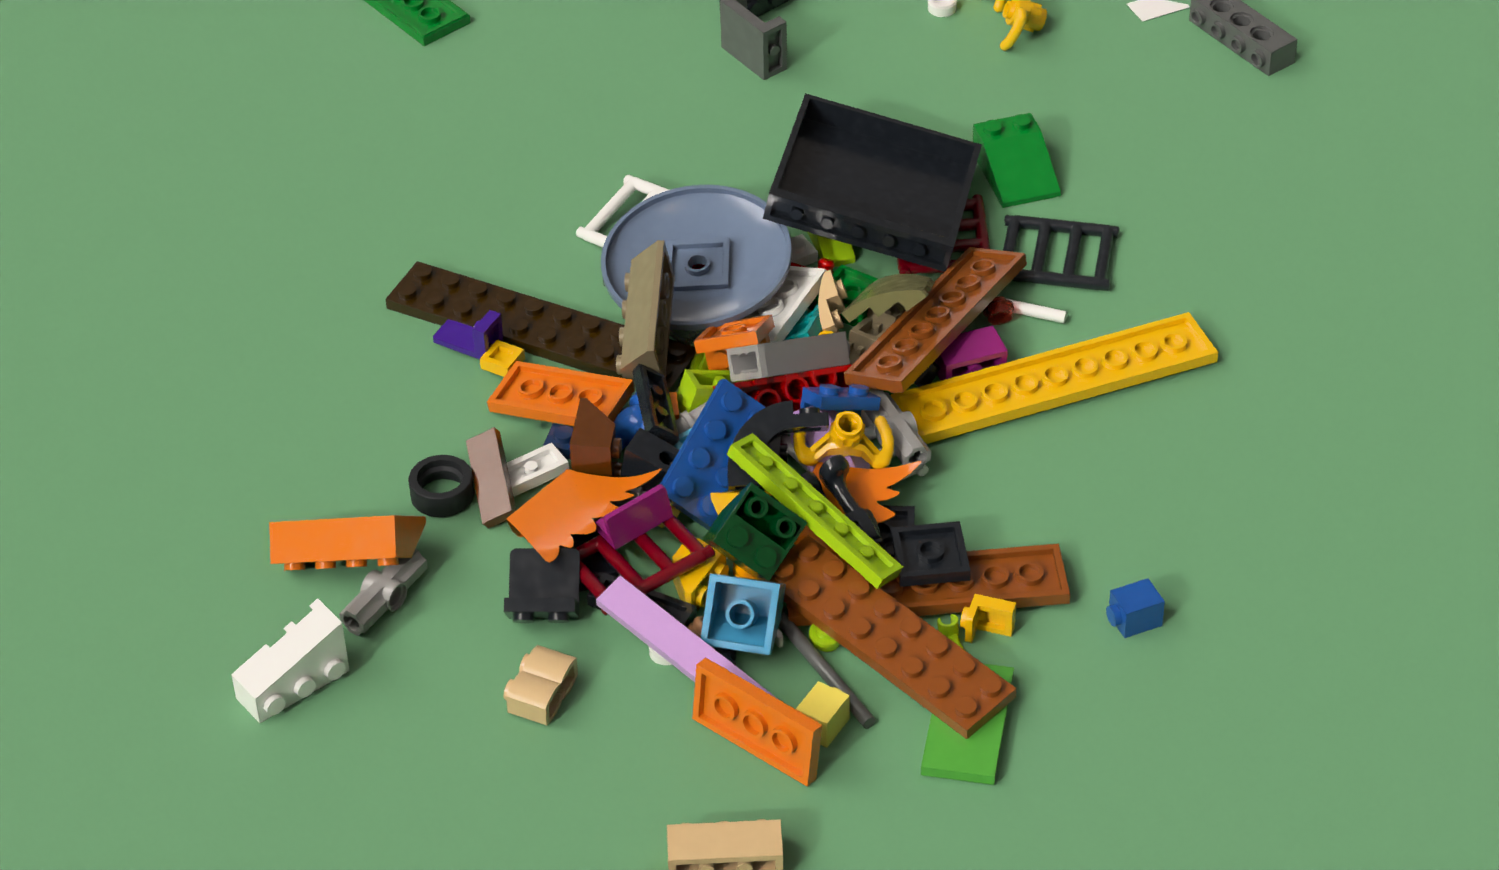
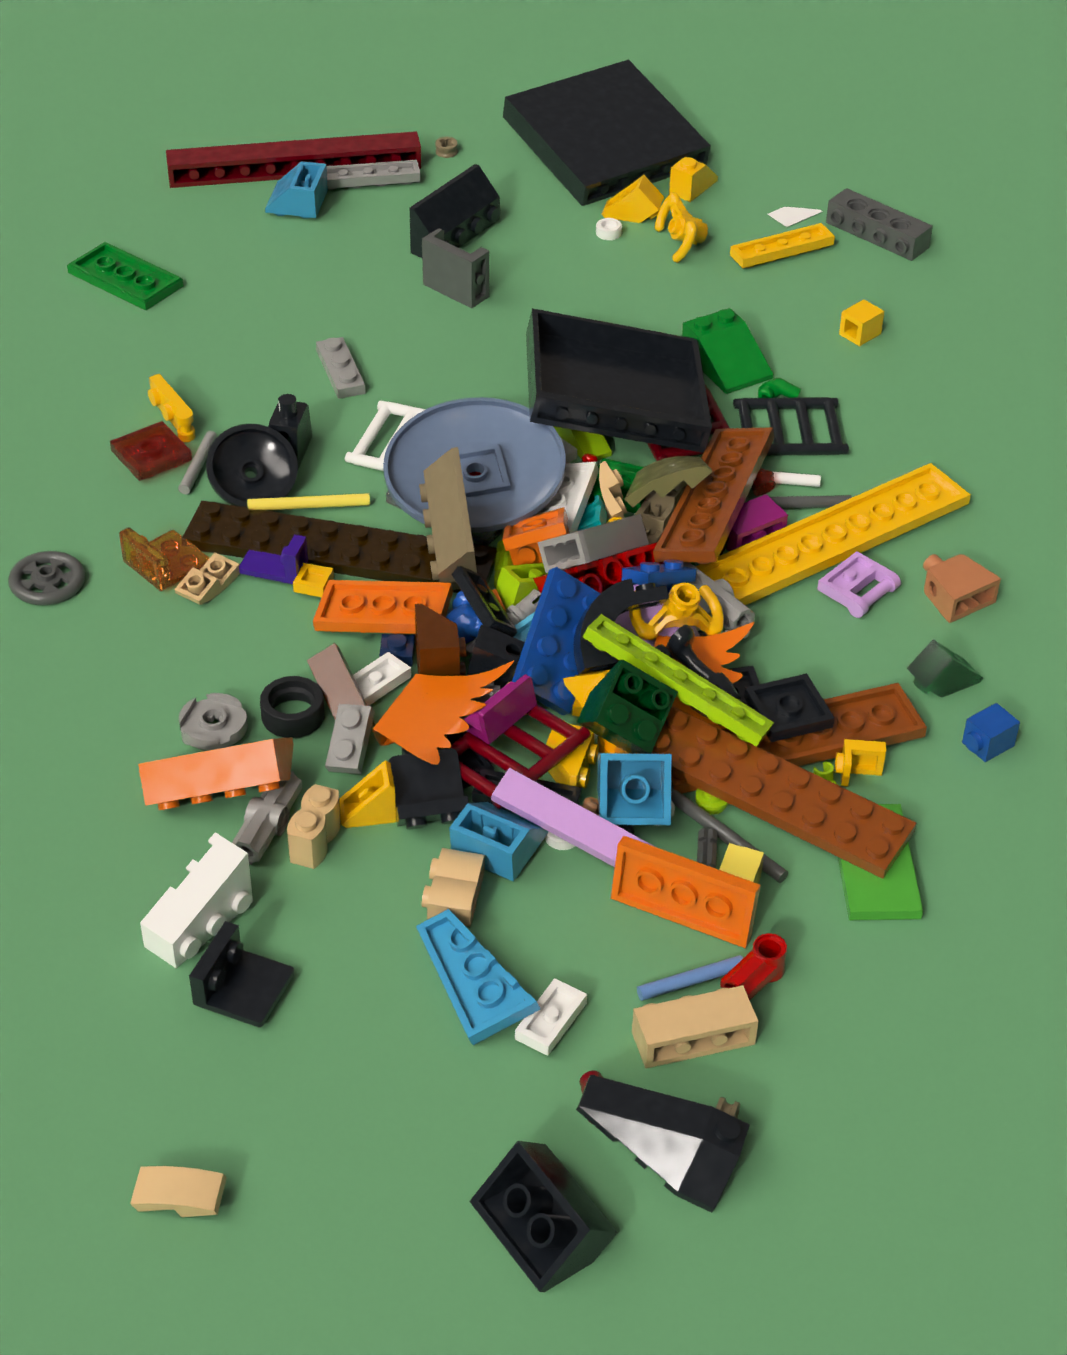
camera: 15 degrees left, 0 degrees up
(244, 323) = (46, 578): none -> dark grey plate
(307, 741) = (237, 980): none -> black bracket
(361, 318) = (162, 559): none -> clear orange bracket
(369, 503) = (205, 736): none -> light grey plate
(382, 202) = (150, 450): none -> clear red plate
(396, 349) = (209, 581): none -> tan slope
(415, 158) = (172, 407): none -> yellow plate
(424, 606) = (314, 826): none -> tan brick
(426, 219) = (197, 463): none -> light grey bar
(469, 214) = (254, 450): none -> black dish
(485, 525) = (349, 738): none -> light grey plate
(486, 588) = (370, 799): none -> yellow slope
(520, 275) = (309, 502): none -> light yellow bar
(523, 200) = (293, 420): none -> black torso
(529, 777) = (477, 985): none -> dark azure wing
(592, 821) = (559, 1009): none -> white plate
(596, 640) = (499, 835): none -> dark azure slope
(603, 132) = (340, 367): none -> light grey plate
(742, 806) = (687, 978): none -> medium blue bar
(801, 684) = (707, 847): none -> dark grey axle
(815, 803) = (760, 966): none -> red piece
(1039, 338) = (809, 501): none -> dark grey bar
(1056, 426) = (851, 577): none -> lavender plate
(1057, 207) = (777, 387): none -> green arm
(1112, 537) = (942, 671): none -> clear green slope
(1125, 43) = (781, 245): none -> yellow plate
(1166, 450) = (959, 586): none -> nougat torso
(1177, 143) = (861, 322): none -> yellow brick

